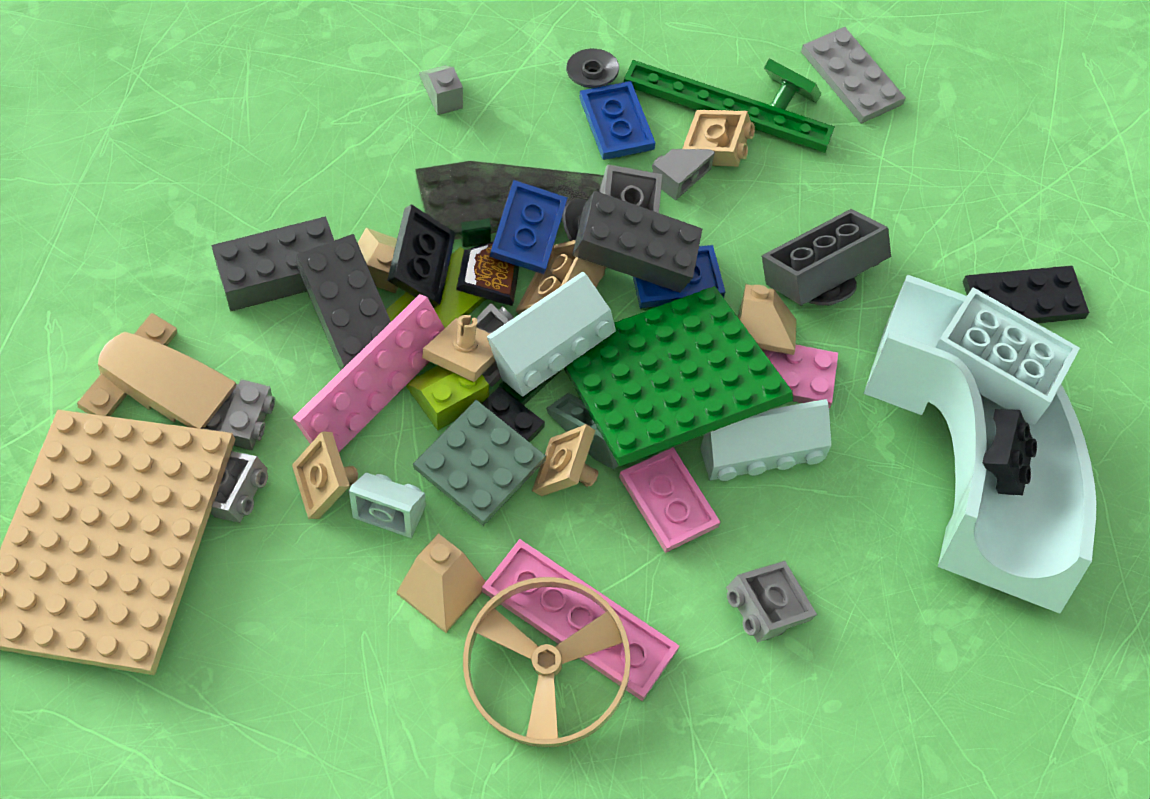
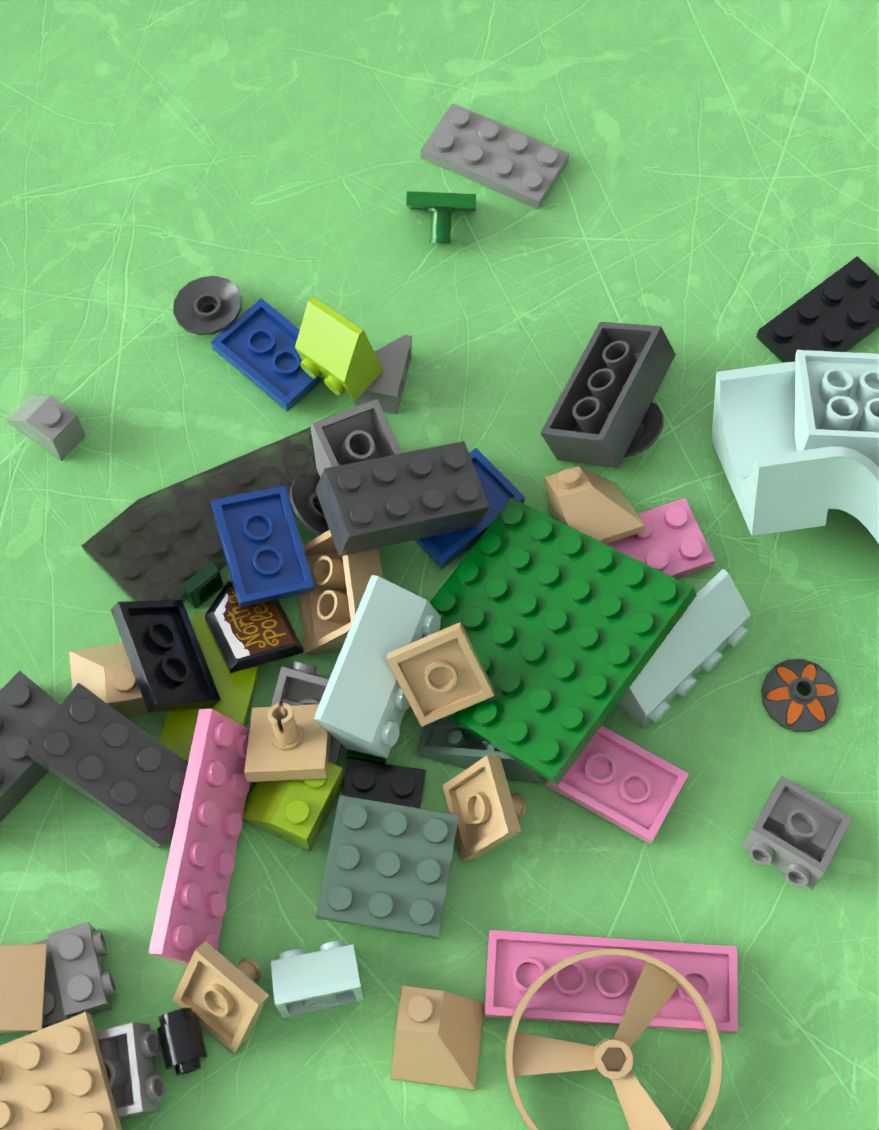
camera: 25 degrees left, 5 degrees up
(280, 490) = (181, 1041): none -> black brick
(587, 356) = (440, 674): none -> tan tile
(655, 132) = (336, 351): none -> slope
(707, 97) = (386, 268): green plate -> none
(723, 133) = (401, 308): tan plate -> none
(831, 532) = (793, 709): none -> dark grey dish

